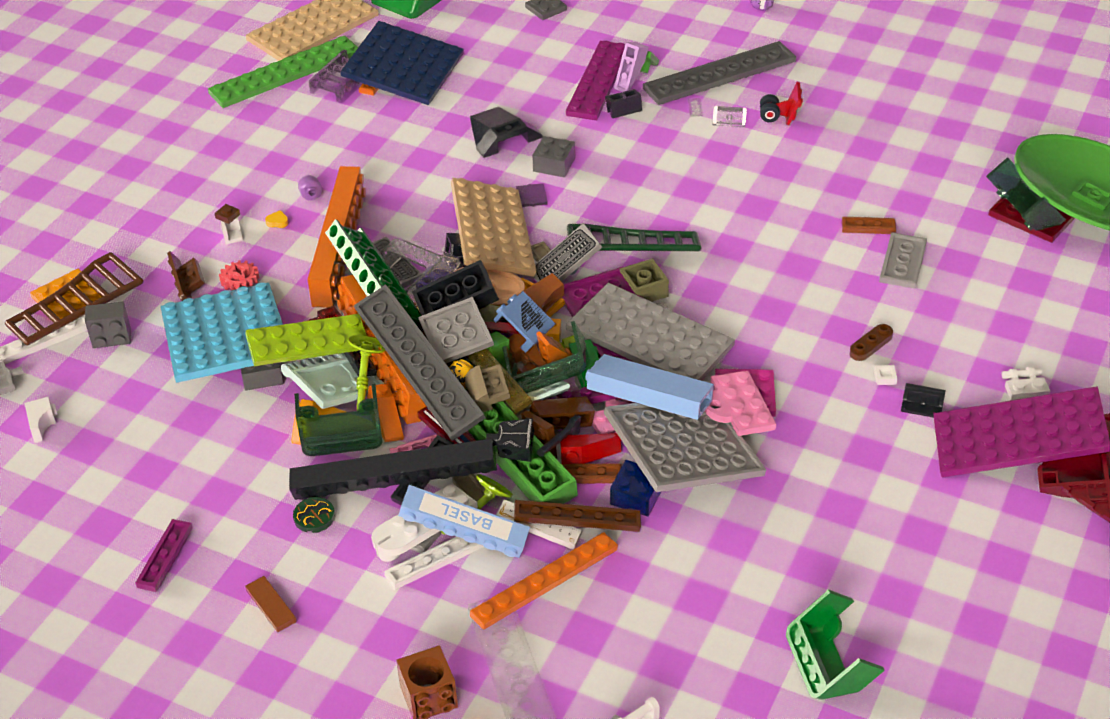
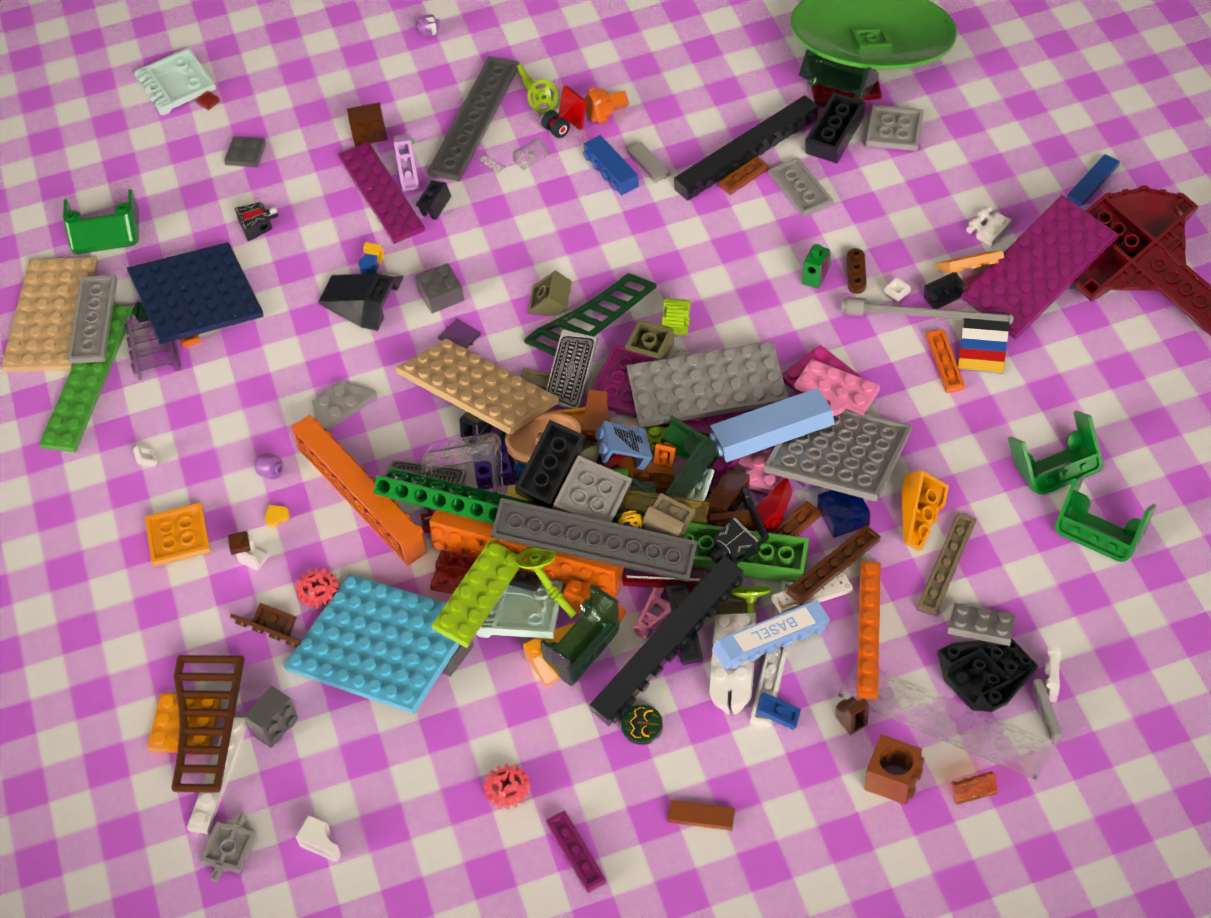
camera: 40 degrees left, 10 degrees up
(180, 479) = (507, 787): none -> coral gear
(208, 189) = (177, 534): none -> light orange plate
(251, 133) = (145, 456): none -> white plate
(324, 38) = (92, 319): none -> light grey plate
(400, 183) = (341, 403): none -> light grey wing
(407, 578) = (778, 711): none -> blue plate
(453, 625) = (852, 714): none -> reddish brown arch
(495, 46) = (255, 219): none -> black torso
(535, 113) = (372, 258): none -> leg
(594, 679) = (985, 672): none -> black wedge
(621, 209) = (550, 295): none -> olive slope
(634, 646) = (981, 624): none -> light grey plate
(638, 28) = (367, 123): none -> reddish brown piece
(668, 586) = (946, 564): none -> dark tan tile
(686, 276) = (677, 315): none -> lime brick
(699, 531) = (921, 502): none -> light orange wedge
(774, 157) = (610, 165): none -> blue brick
(783, 81) = (539, 95): none -> lime dish
(807, 173) = (648, 161): none -> light grey tile
(818, 114) = (602, 104): none -> orange piece
(839, 314) = (817, 259): none -> green torso
(859, 450) = (945, 361): none -> orange tile
(868, 596) = (1060, 469): none -> green windscreen
(898, 206) = (746, 147): none -> black brick
(906, 454) = (982, 336): none -> flag
(963, 389) = (970, 261): none -> light orange plate
(981, 235) = (835, 127): none -> black brick
(1034, 267) = (895, 127): none -> light grey plate

